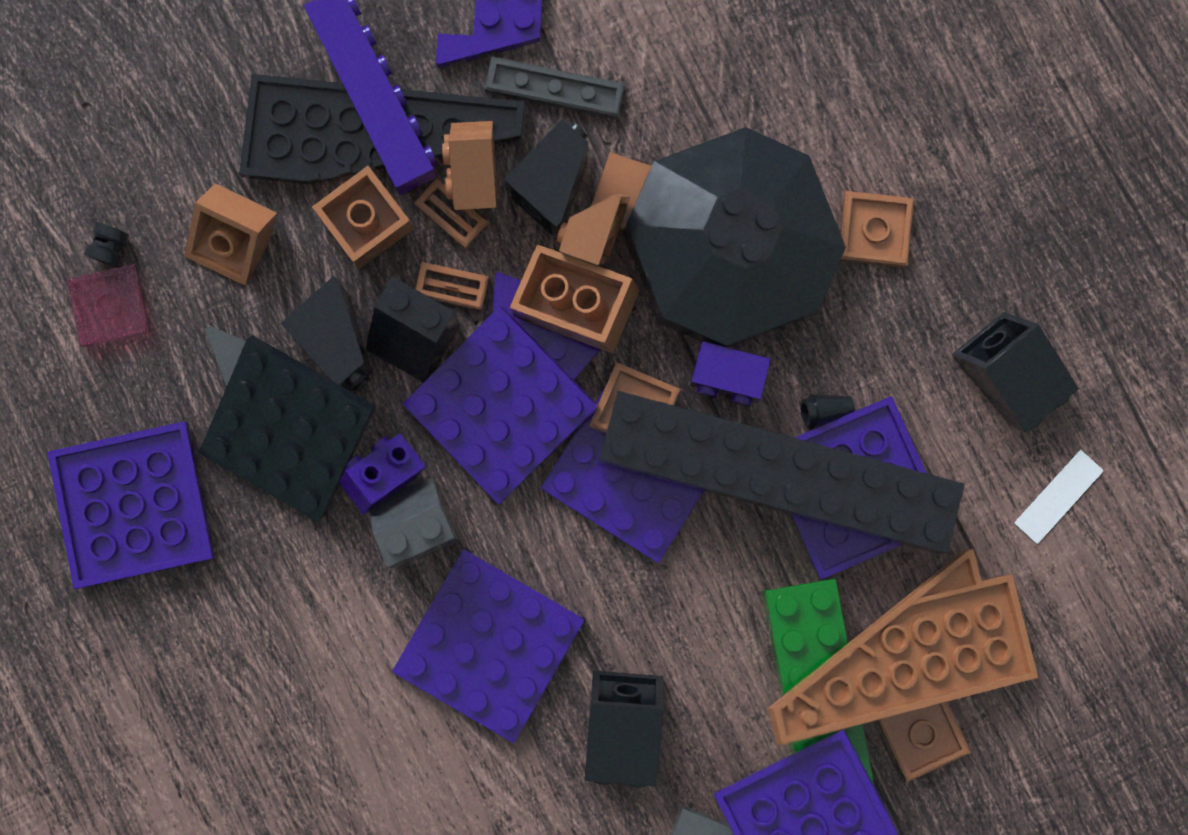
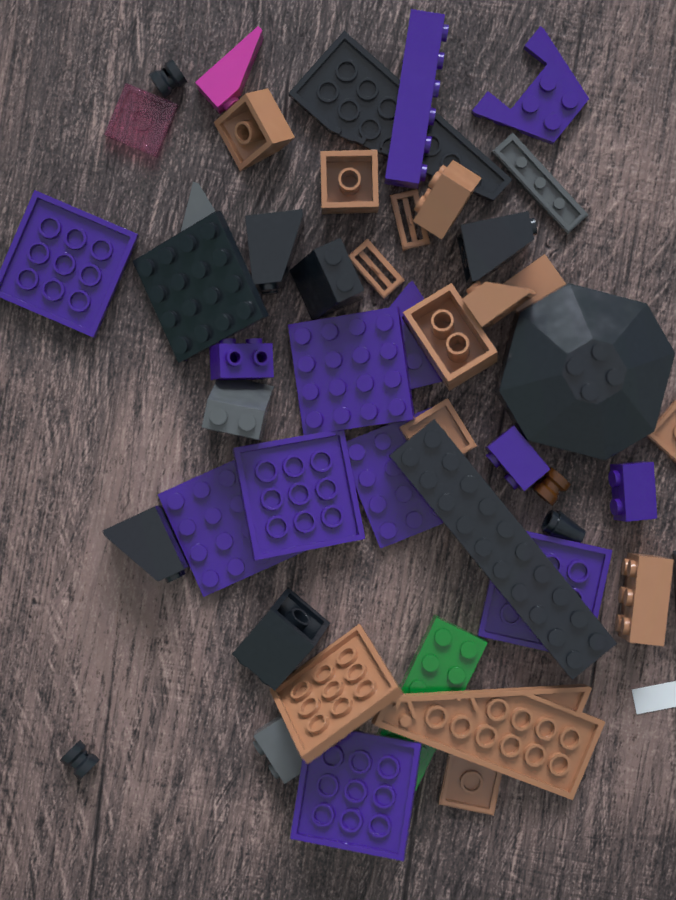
camera: 40 degrees right, 5 degrees up
(167, 202) = (227, 78): none -> dark pink slope
(419, 726) = (150, 544): none -> black slope
(535, 567) = (298, 494): none -> dark purple plate
(719, 743) = (335, 693): none -> nougat plate
(784, 378) = (550, 487): none -> reddish brown wheel
(868, 322) = (633, 491): none -> dark purple brick
(959, 420) = (644, 599): none -> nougat brick

